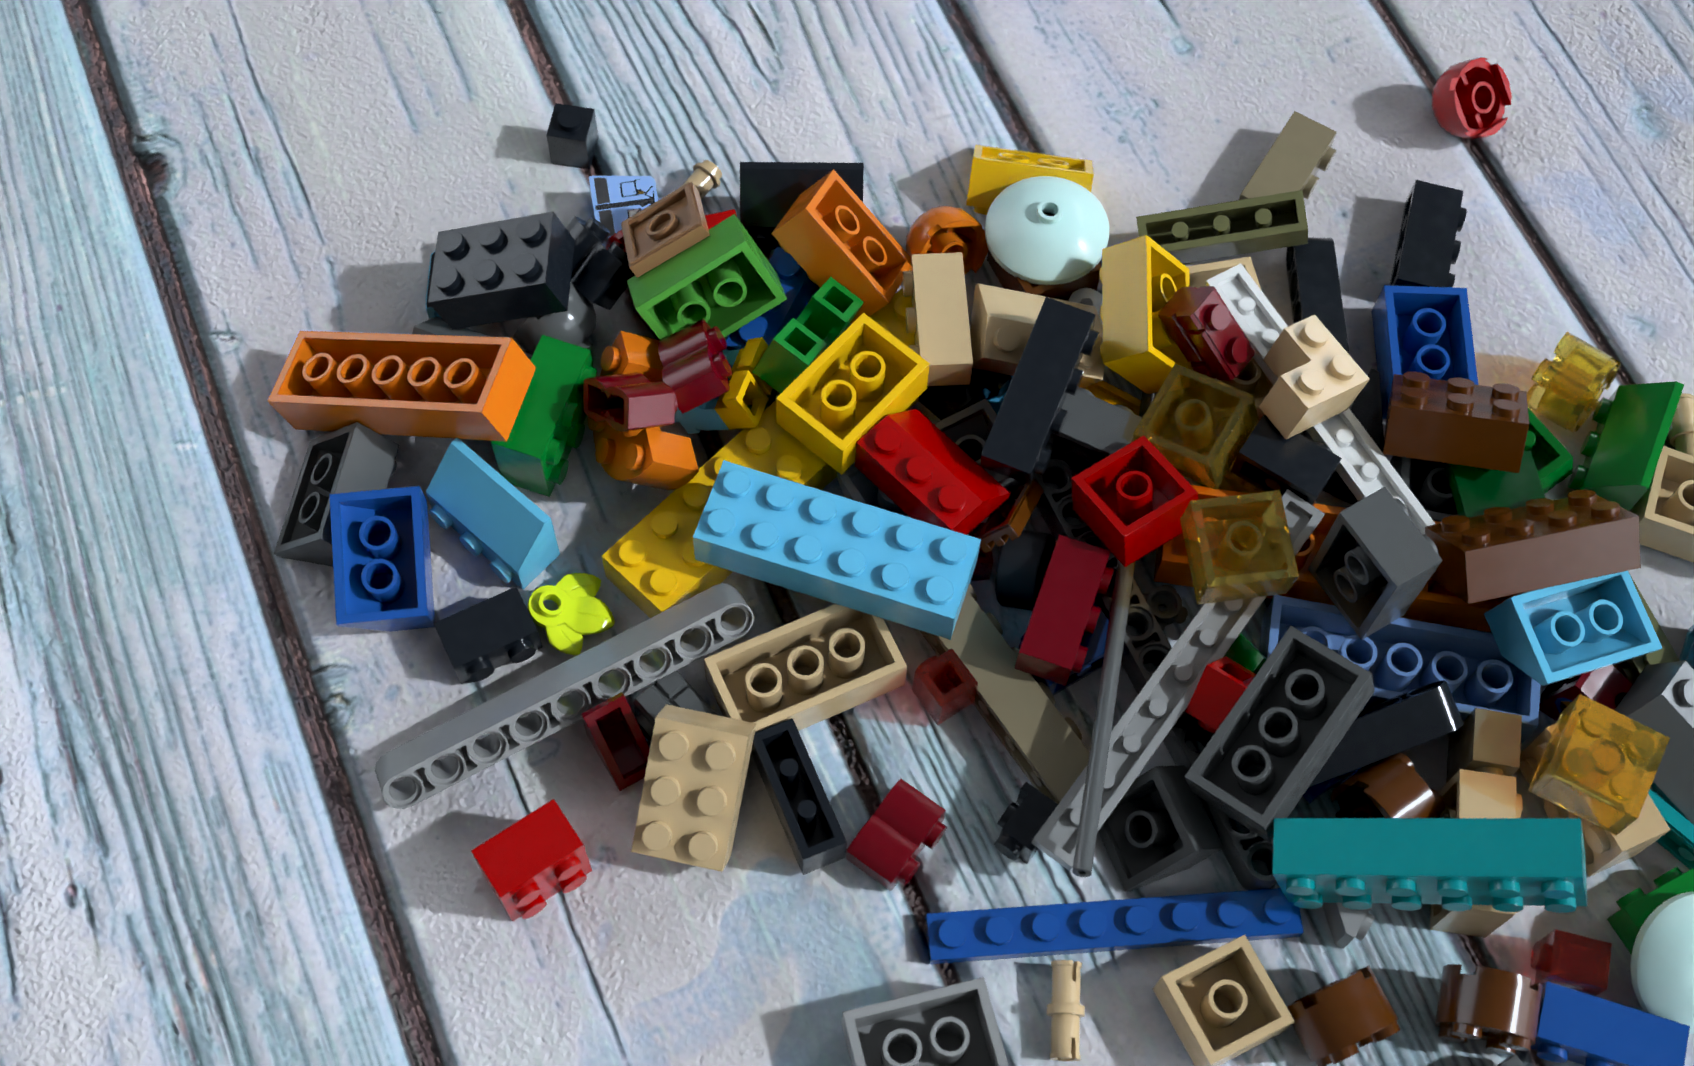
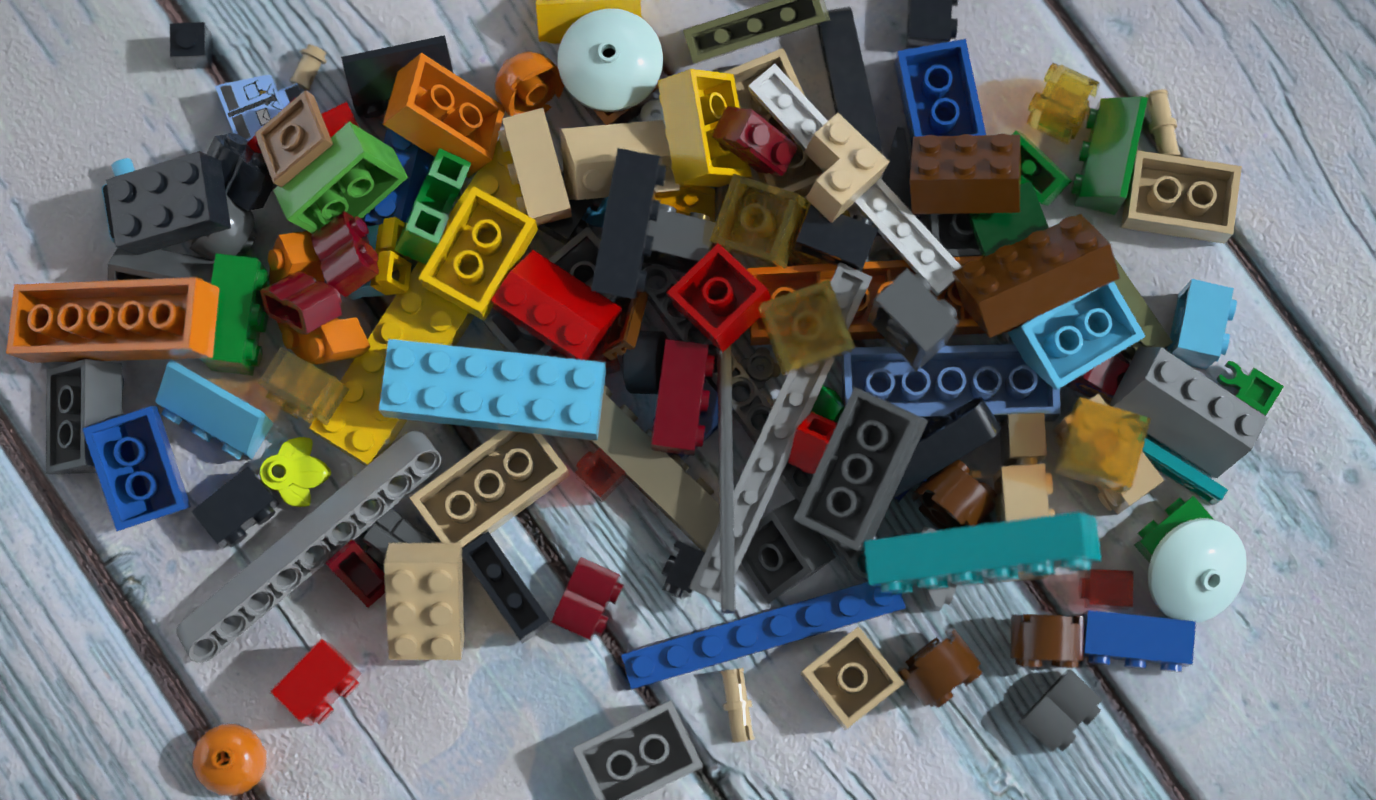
camera: 10 degrees left, 15 degrees up
(410, 952) = (245, 763): none -> orange cylinder
(604, 505) = (302, 388): none -> clear yellow brick

